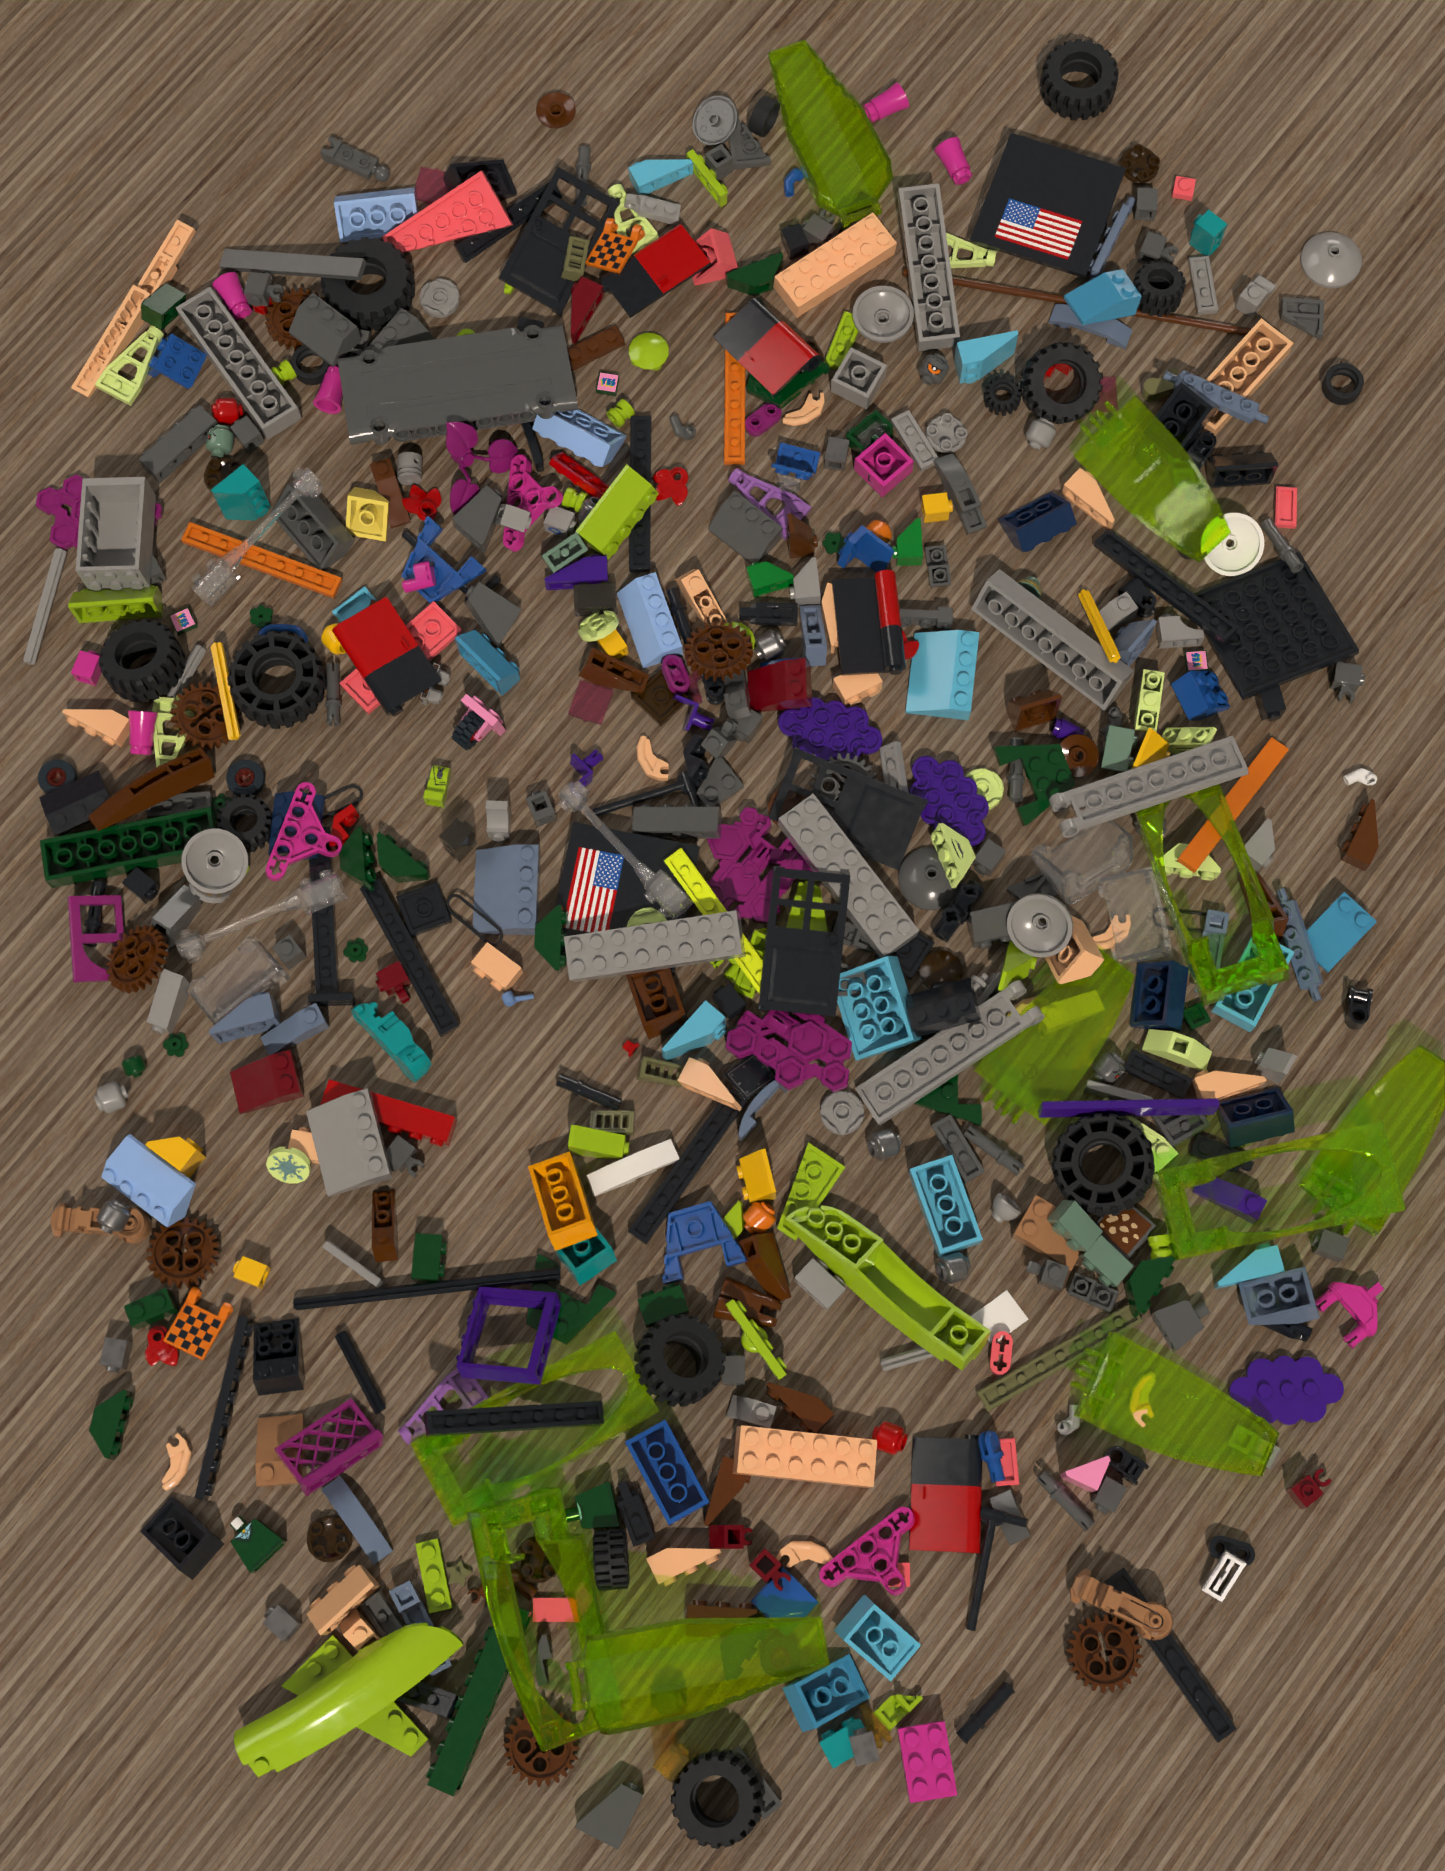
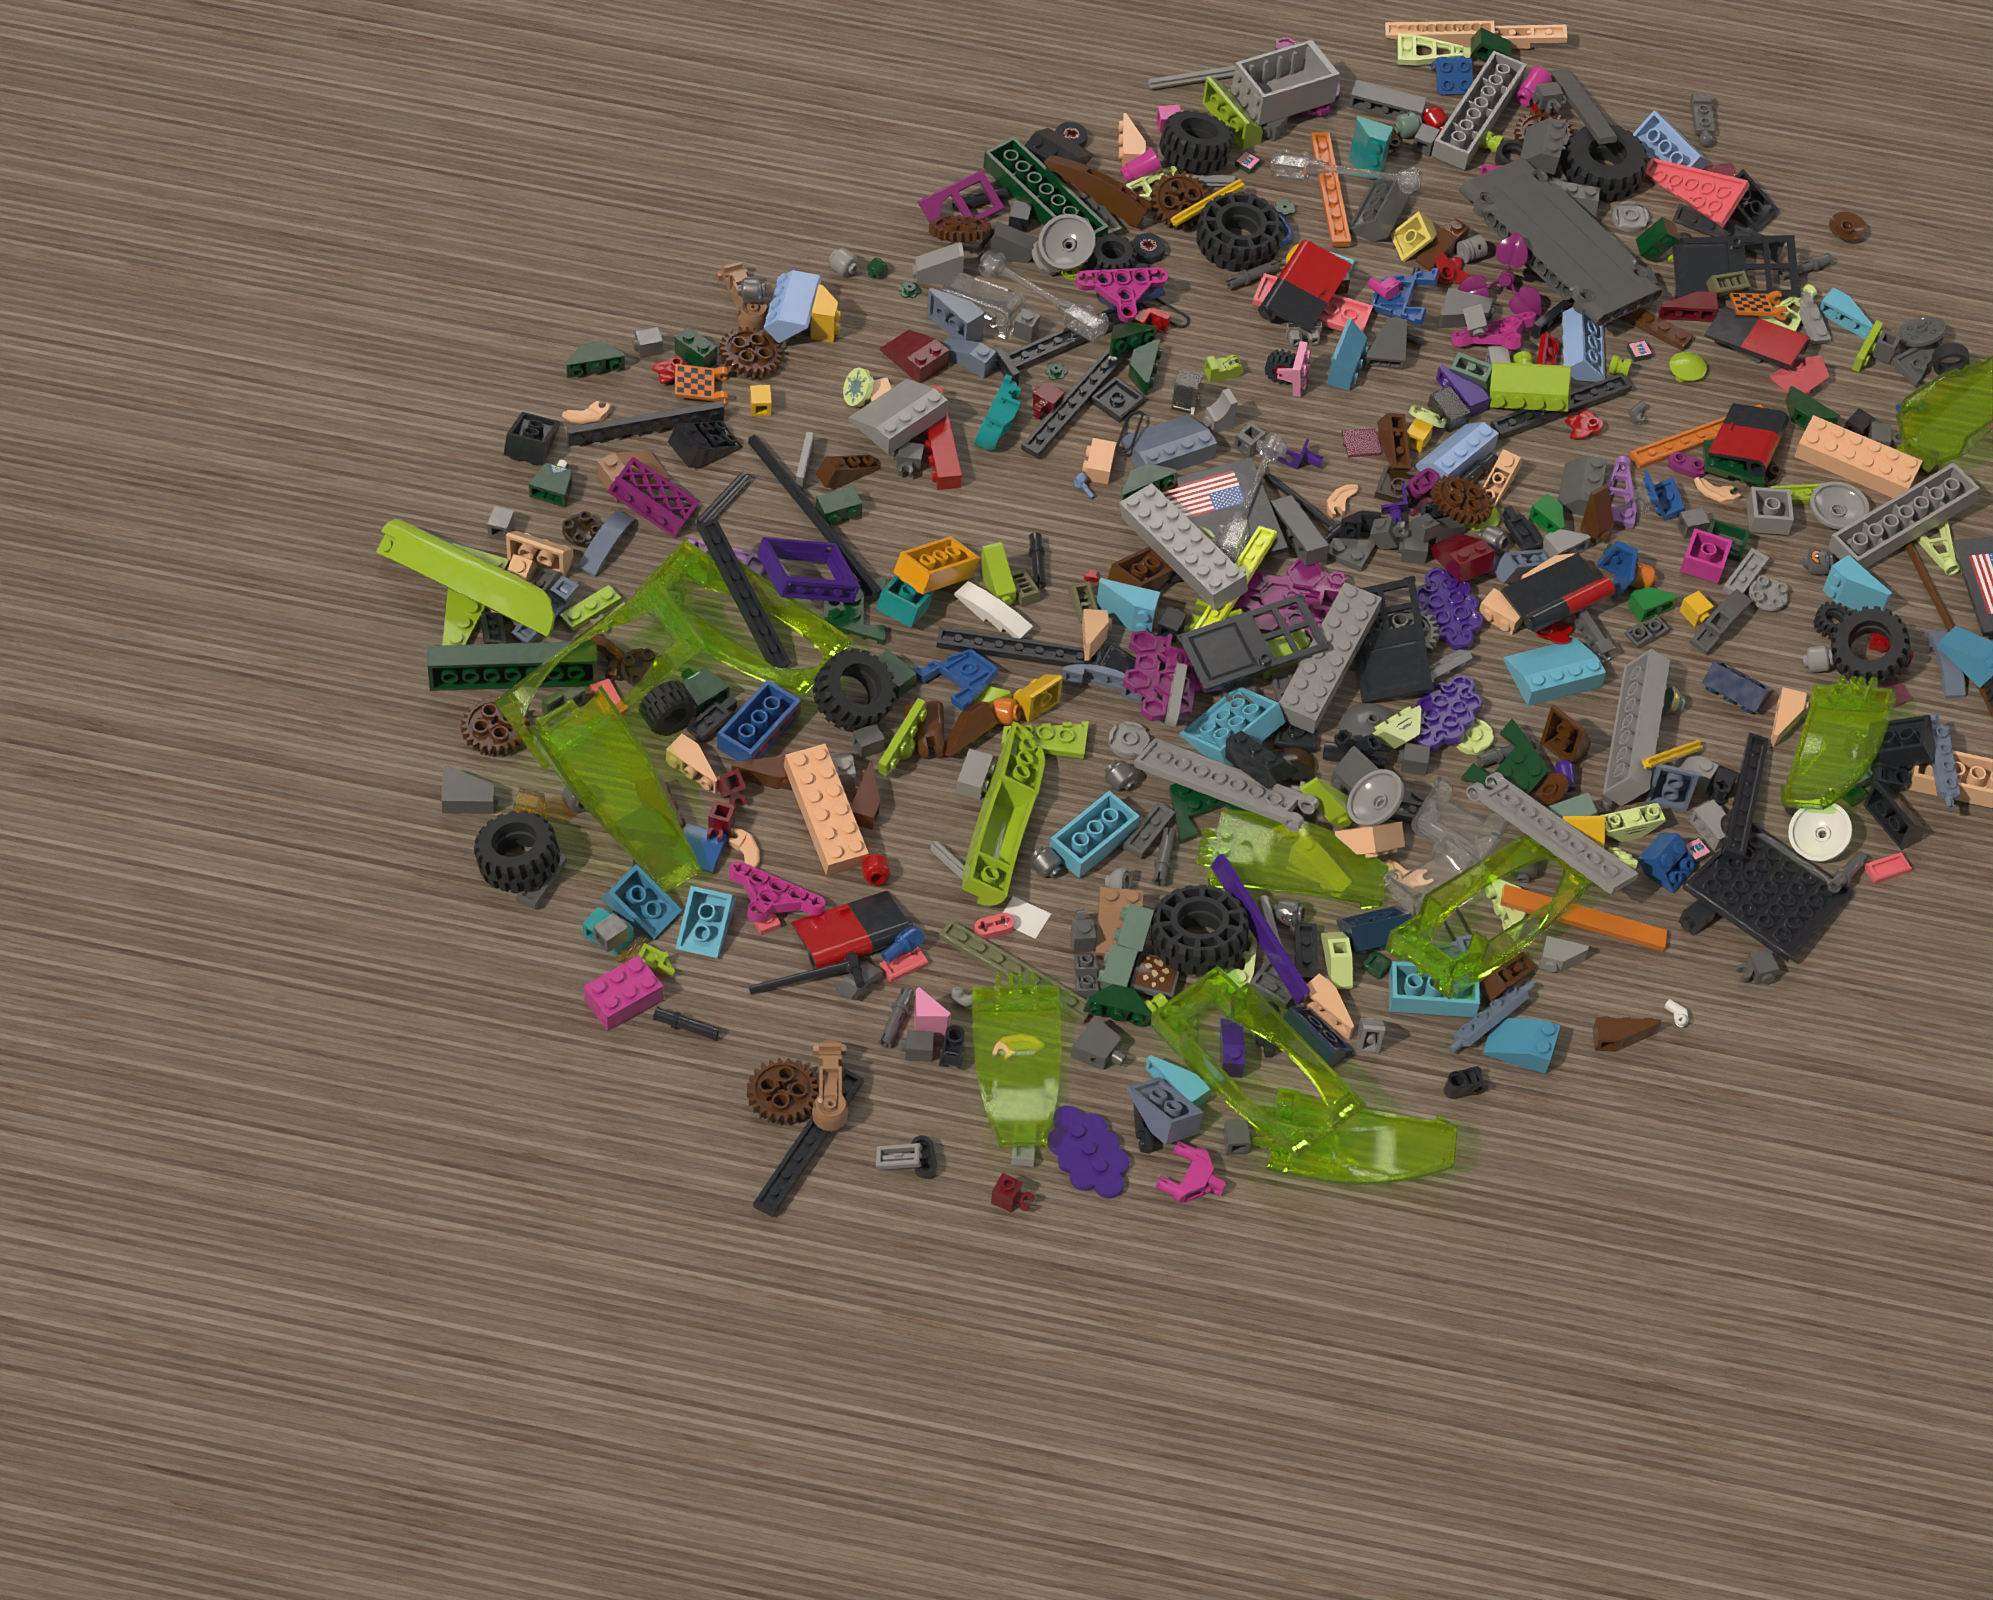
camera: 55 degrees right, 20 degrees down
(492, 291) = (1657, 239): none -> dark green brick
(833, 1048) = (1175, 695): none -> light grey beam

